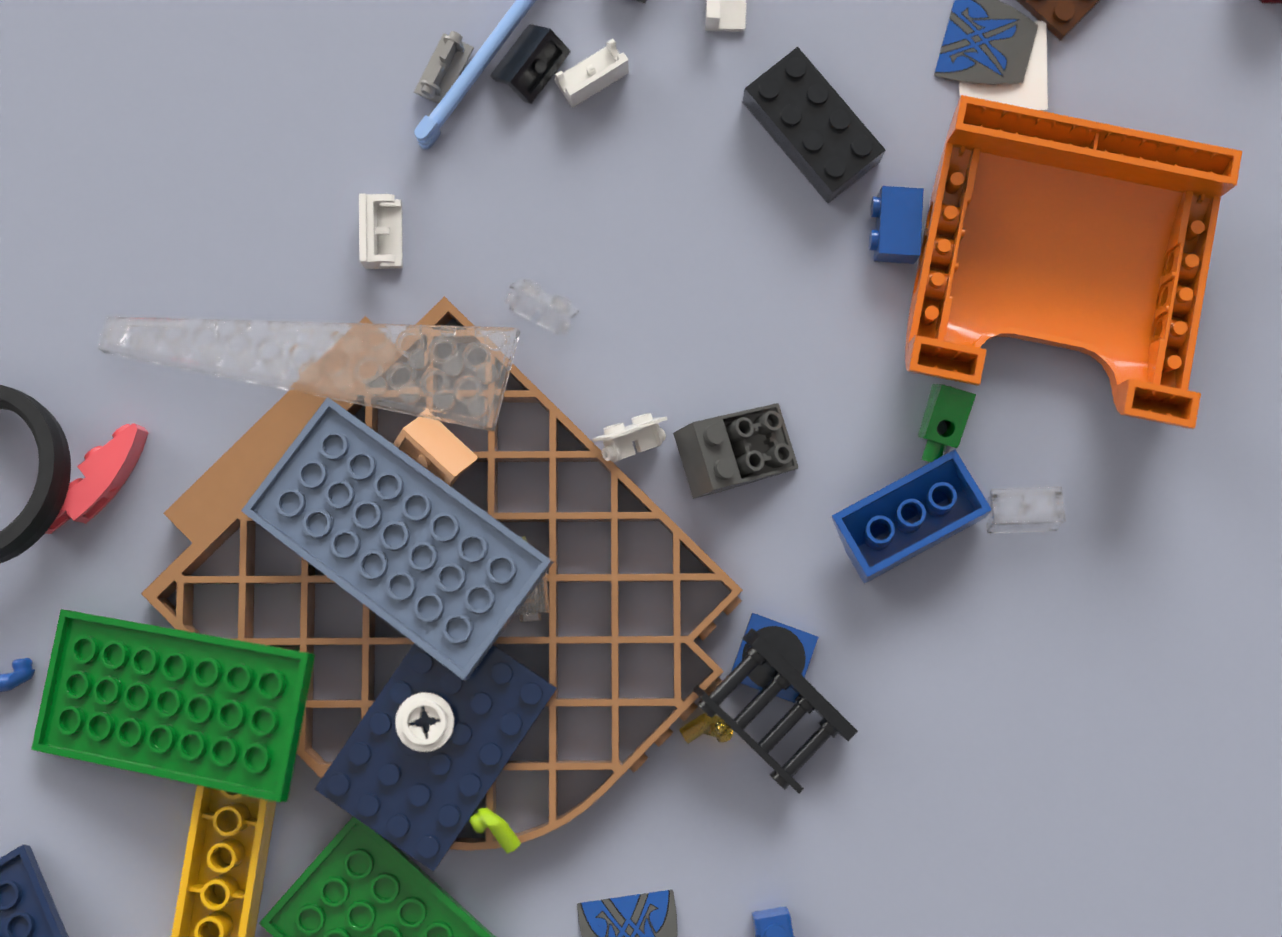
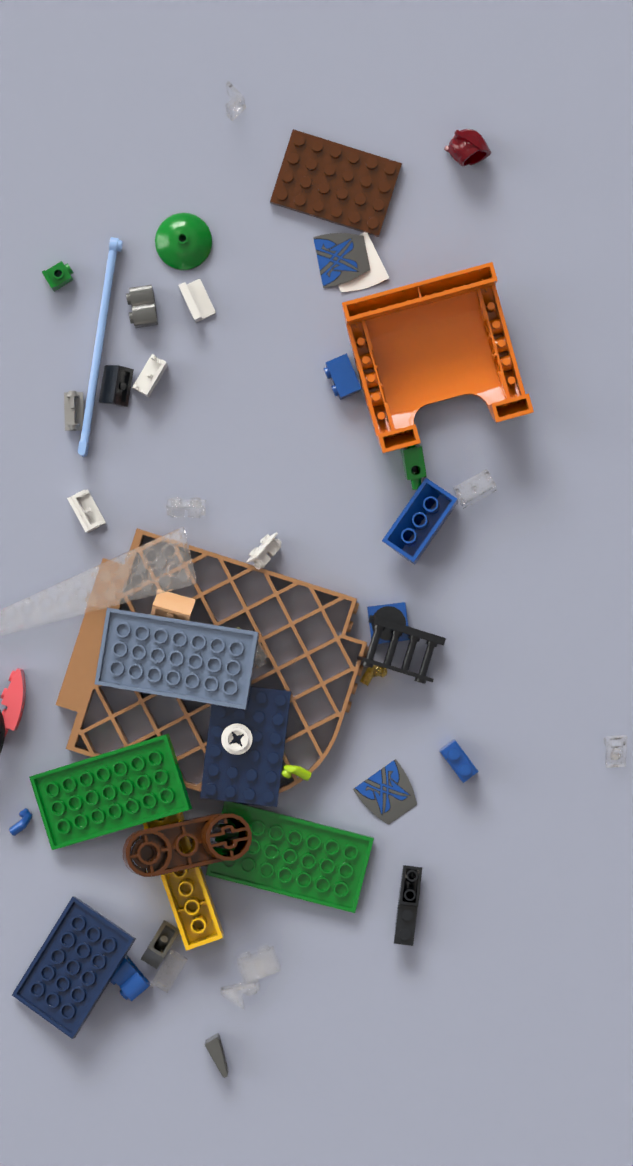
camera: 30 degrees left, 5 degrees up
(202, 868) = (160, 851): none -> reddish brown beam
(735, 449) = (319, 530): dark grey slope -> none
(813, 125) = (275, 347): black brick -> none

